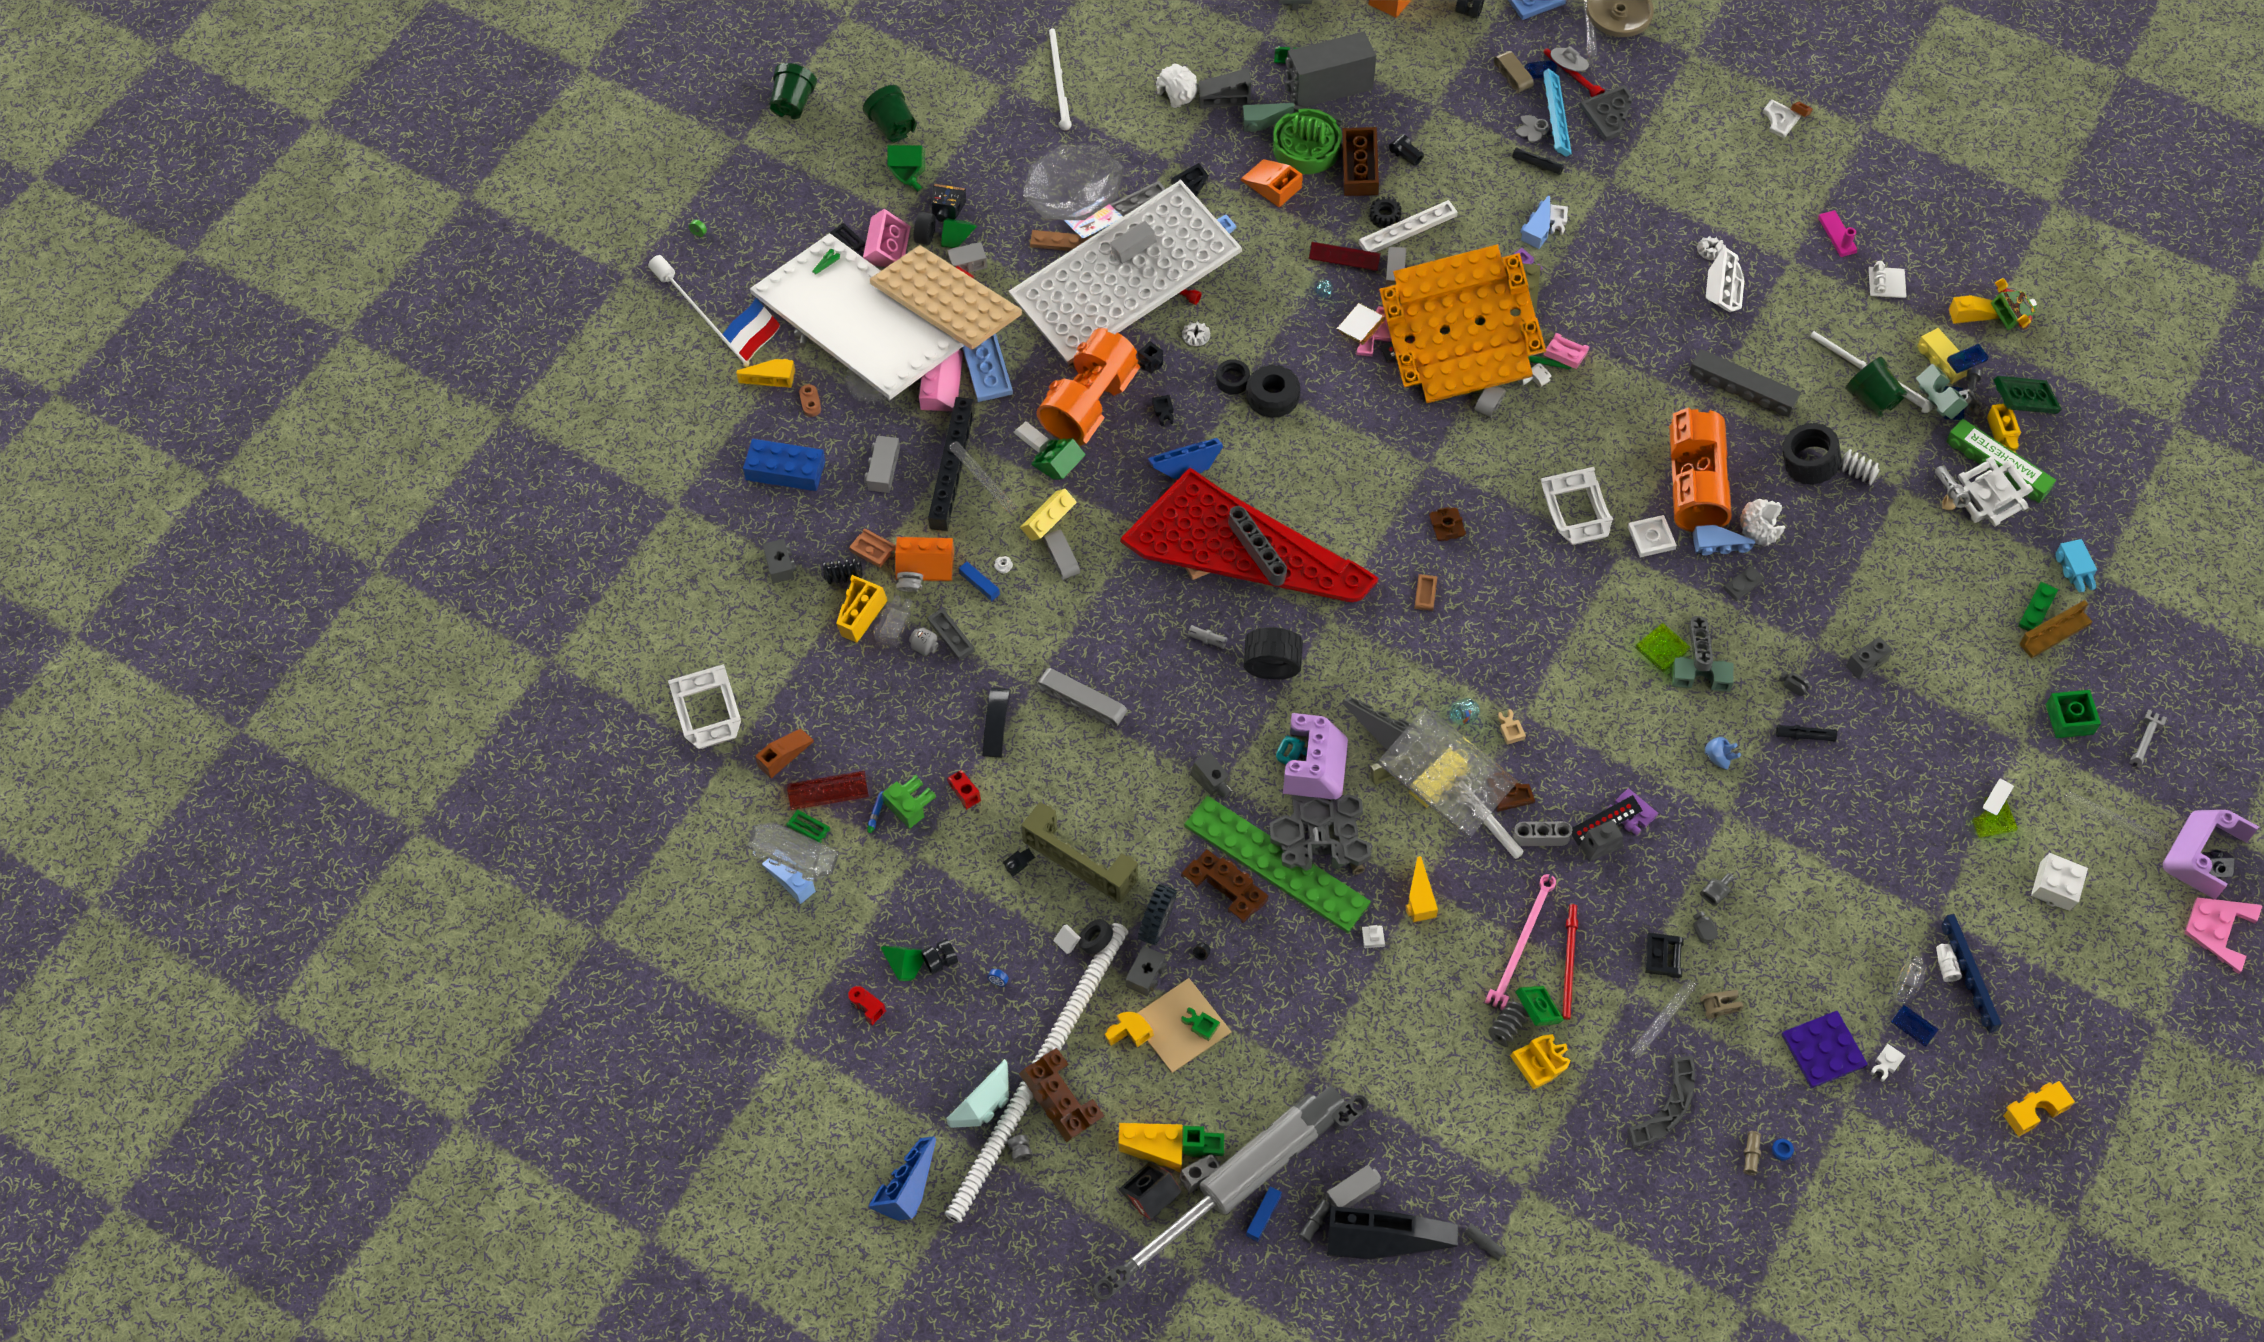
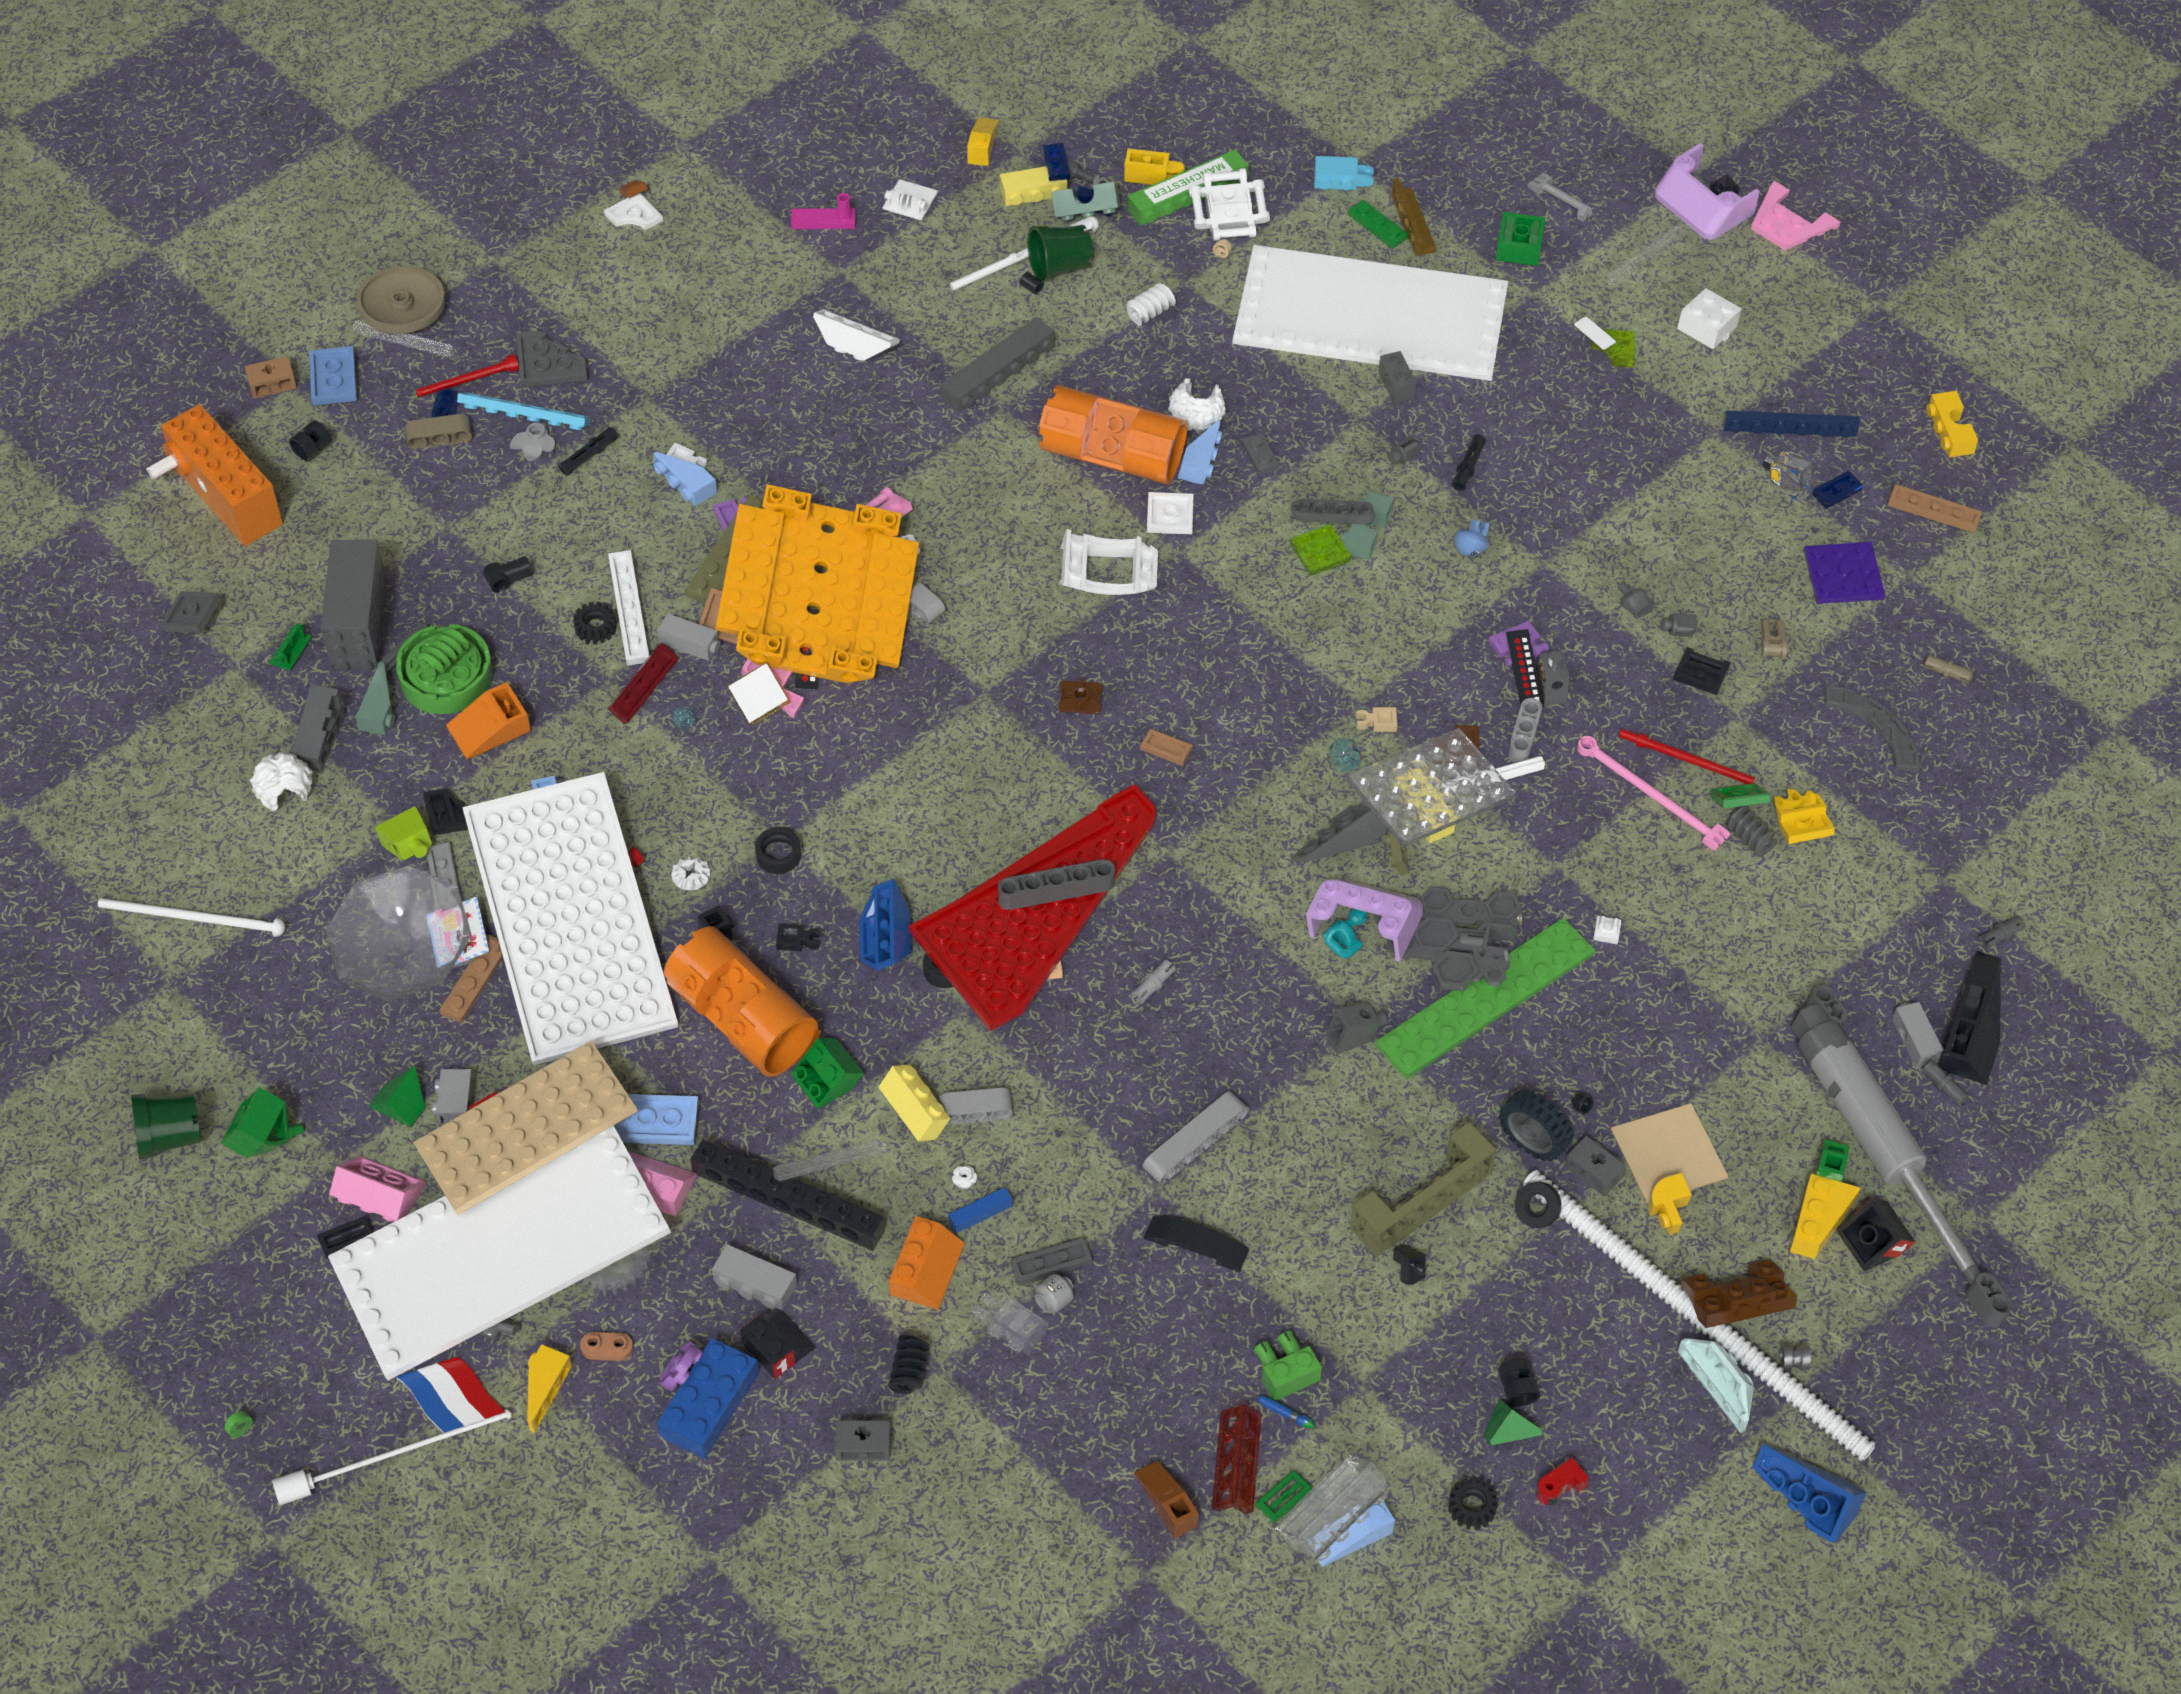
camera: 75 degrees left, 5 degrees down
(700, 682) = (1029, 1580): white wedge -> none
(791, 89) = (53, 1239): dark green piece -> none
(794, 439) = (677, 1369): none -> medium lavender plate
(827, 939) = (1476, 1489): none -> black tyre
(828, 259) = (383, 1264): green piece -> none
(838, 490) = (775, 1342): none -> black slope
(860, 608) = (977, 1355): yellow wedge -> none
(872, 548) = (883, 1322): nougat plate -> none
(909, 581) = (959, 1286): light grey wheel -> none
(924, 228) = (383, 1132): black tyre -> none
(947, 201) = (345, 1097): black torso -> none
(964, 789) = (1286, 1300): red leg -> none
(998, 977) = (1562, 1326): blue tile -> none
(1032, 437) = (775, 1096): white tile -> none
(1066, 939) = (1530, 1238): white tile -> none
(1133, 242) = (539, 887): light grey brick -> none
(1161, 165) = (405, 835): none -> lime torso
(1197, 1172) = (1866, 1176): light grey leg -> none
(1202, 1025) = (1681, 1125): green plate -> none
(1229, 881) = (1500, 1048): reddish brown bracket -> none
(1263, 1214) = (1928, 1131): blue piece -> none
(1268, 403) = (827, 828): black tyre -> none
(1273, 653) = (1215, 910): black tyre -> none
(1360, 161) = (508, 621): reddish brown brick -> none
(1421, 898) = (1569, 866): yellow slope -> none
(1569, 59) = (447, 372): light grey shield -> none
(1662, 1019) = (1776, 696): clear axle -> none
(1710, 254) = (786, 340): white gear -> none
(1782, 1149) = (1948, 644): blue tile -> none
(1811, 436) = (1125, 310): black tyre -> none
(1841, 382) = (1031, 283): none -> black hinge
(1889, 1061) = (1869, 524): white plate -> none
(1931, 1111) = (1934, 508): none -> medium nougat plate
(1939, 627) = (1371, 310): none -> white plate
(1943, 475) = (1218, 233): light grey pin -> none
(1948, 963) = (1774, 438): white hinge -> none
(2013, 306) = (1001, 105): torso -> none
(2027, 394) = (1120, 133): dark green plate -> none

